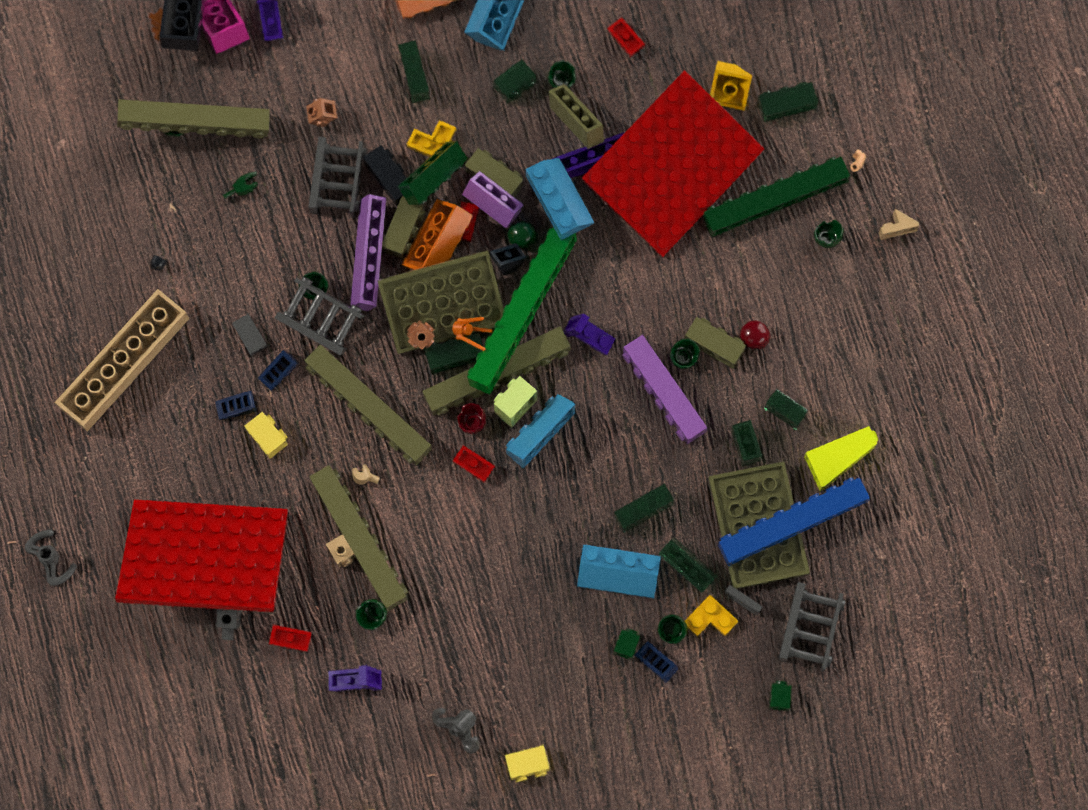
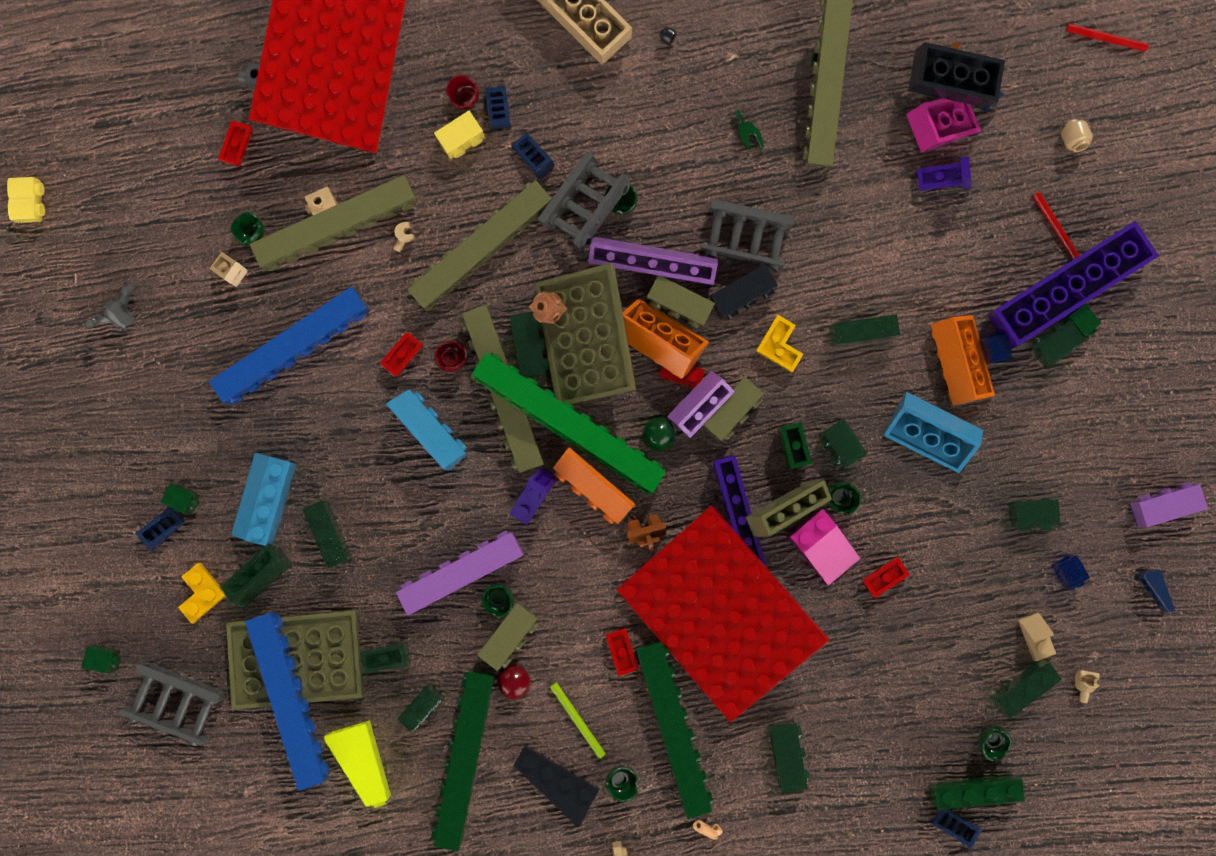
camera: 90 degrees right, 10 degrees up
(226, 435) = (462, 91): none -> dark red hair
(249, 334) = (576, 127): dark grey tile -> none
(321, 112) = (824, 223): nougat brick -> none
(354, 679) = (179, 207): dark purple bracket -> none
(409, 629) = (228, 269): none -> tan slope
(433, 173) = (737, 339): dark green brick -> none
(462, 329) = (550, 357): orange plant -> none
(476, 564) = (289, 346): none -> blue brick
(508, 258) = (628, 412): black slope -> none
(515, 401) = (461, 405): yellowish green brick -> none
(521, 119) = (794, 446): none -> dark green brick
(527, 763) = (67, 378): light yellow brick -> none
(559, 197) = (691, 478): dark azure slope -> none
(574, 282) = (593, 485): none -> orange slope
(605, 89) = (823, 546): none -> dark pink slope
(612, 243) = (647, 535): none -> dark orange hips
(672, 629) = (189, 550): dark green hair -> none
(716, 246) = (621, 652): none -> red plate
(730, 85) = (813, 691): yellow slope -> none
(743, 600) = (211, 632): dark grey tile -> none
(779, 279) = (577, 720): none -> lime bar
(826, 368) = (464, 760): none -> dark green brick
(838, 287) = (559, 785): none -> black wing

